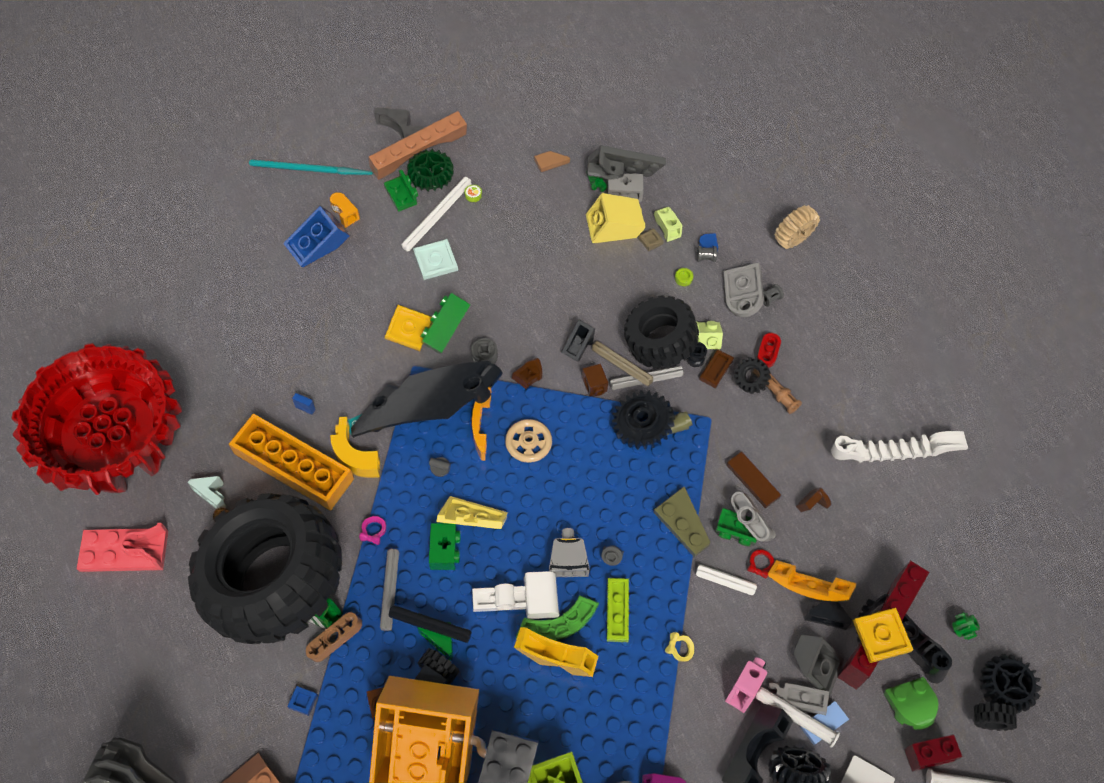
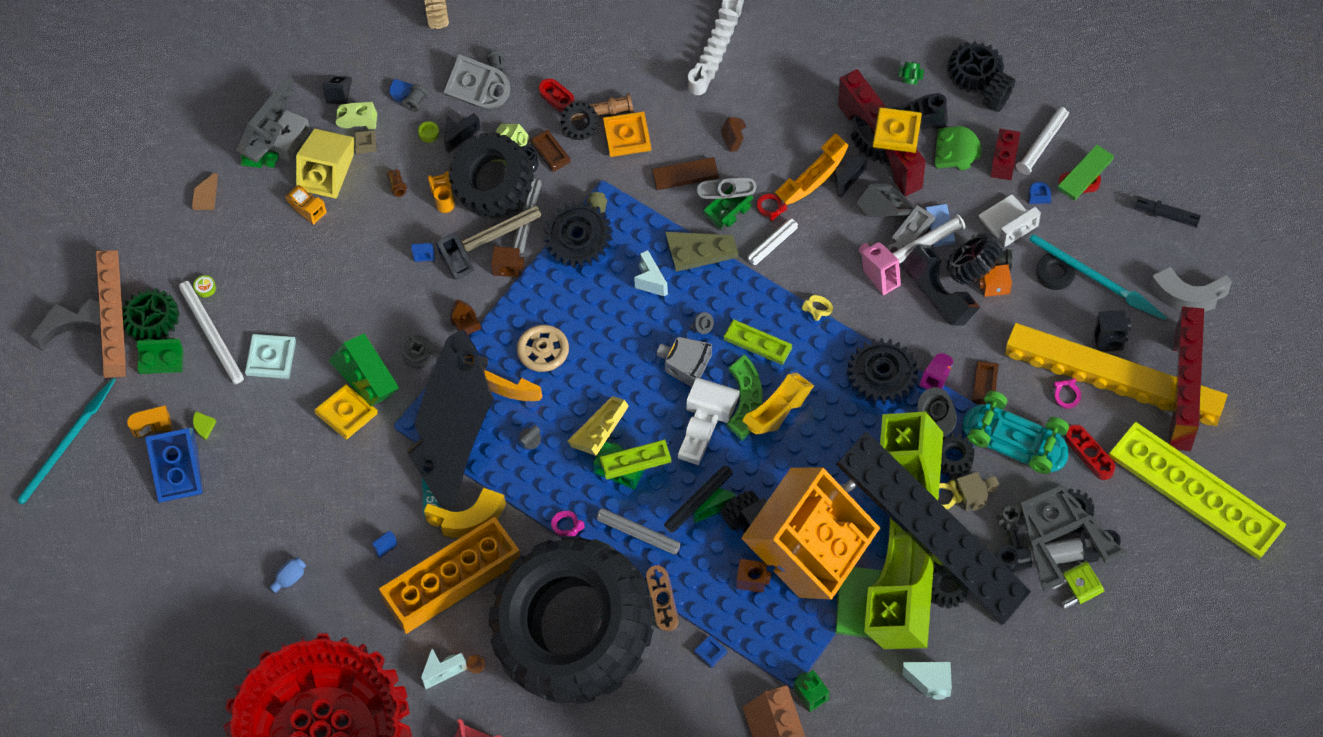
camera: 60 degrees left, 0 degrees up
(255, 350) = (288, 574): none -> medium blue plant
(357, 242) = (203, 424): none -> lime tile
(447, 555) = (635, 459): none -> lime tile
(571, 317) = (423, 252): none -> blue tile
(574, 224) = (306, 204): none -> light orange leg
(622, 277) = (398, 188): none -> reddish brown pin
(629, 304) = (441, 190): none -> light orange piece
(629, 748) = (867, 362): none -> black gear
(633, 495) = (651, 277): none -> light aqua slope
(684, 200) = (337, 89): none -> black slope
(691, 296) = (459, 133): none -> black slope
(763, 417) = (627, 134): none -> light orange plate

